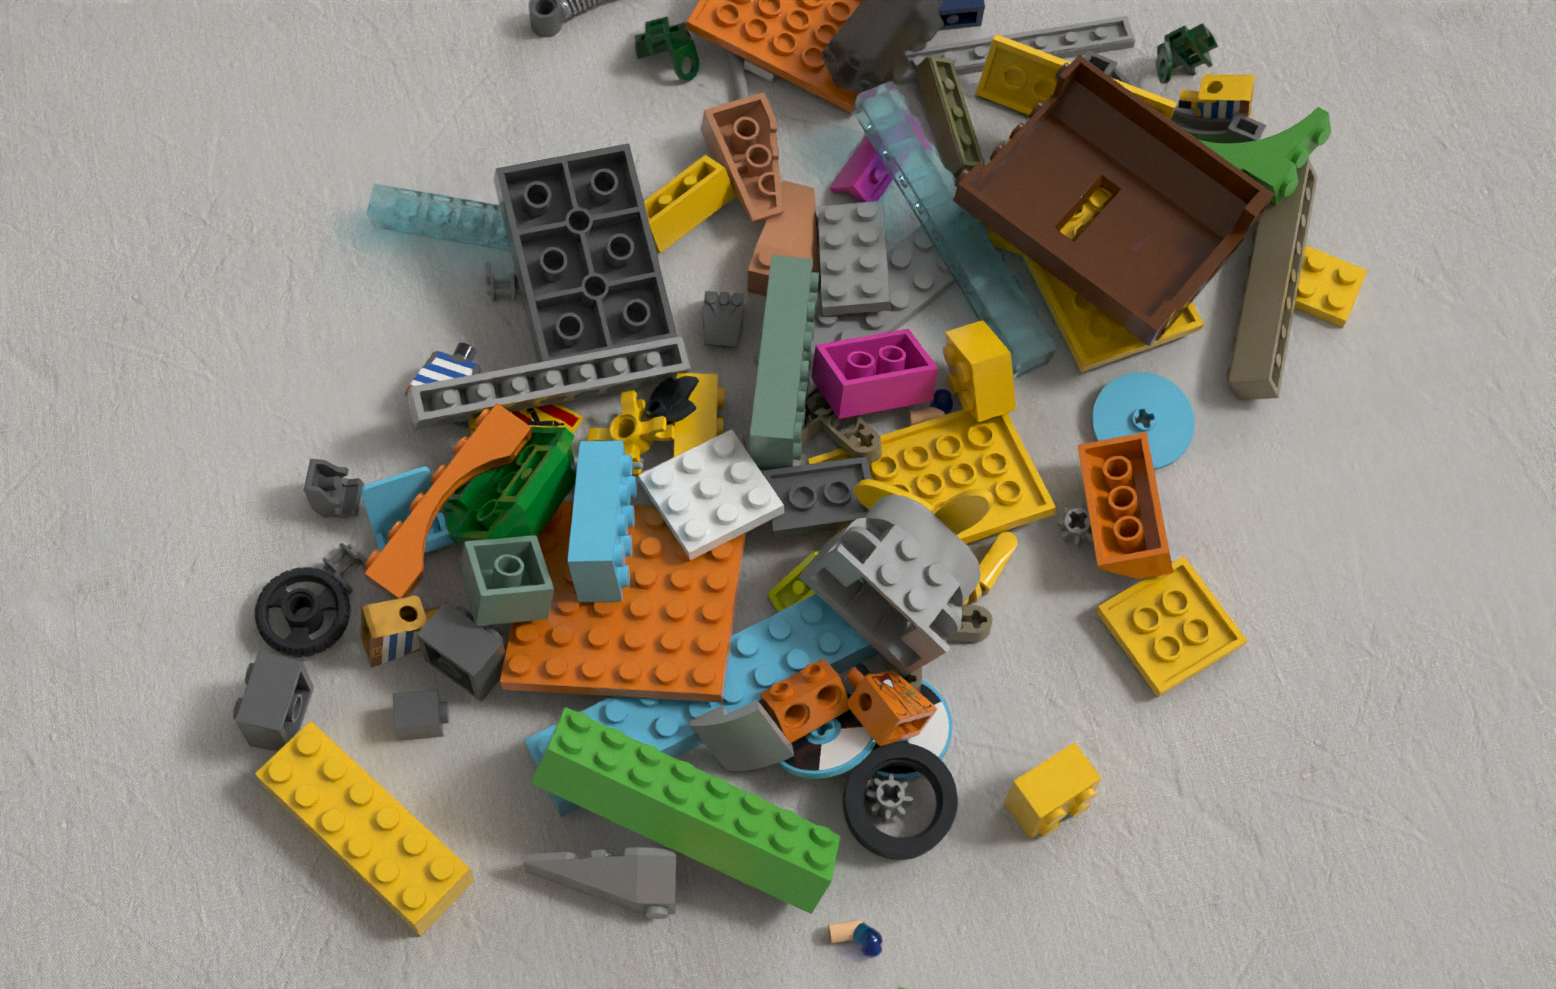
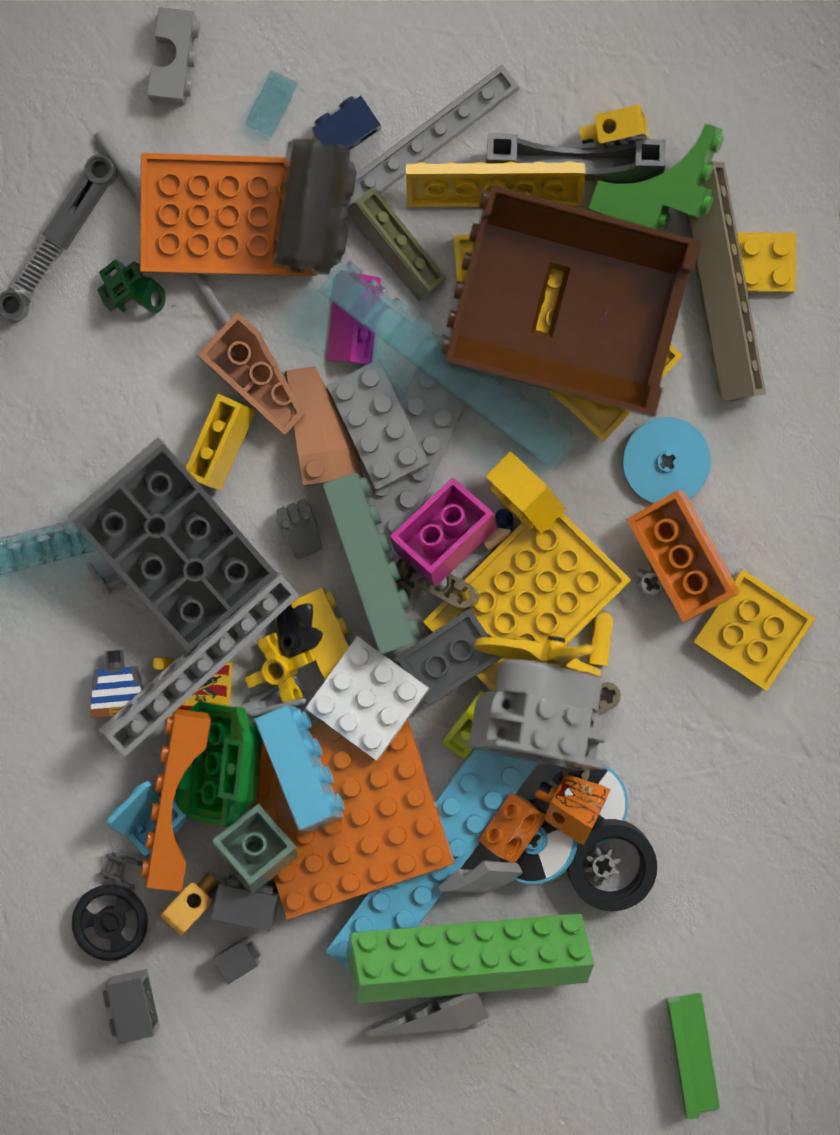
camera: 20 degrees left, 25 degrees up
(330, 492) = (79, 819): dark grey hand -> none
(365, 827) = (243, 1059): yellow brick -> none
(858, 932) = (623, 969): arm -> none
(1053, 791) = (719, 811): yellow brick -> none
(1180, 46) = (567, 85): dark green piece -> none

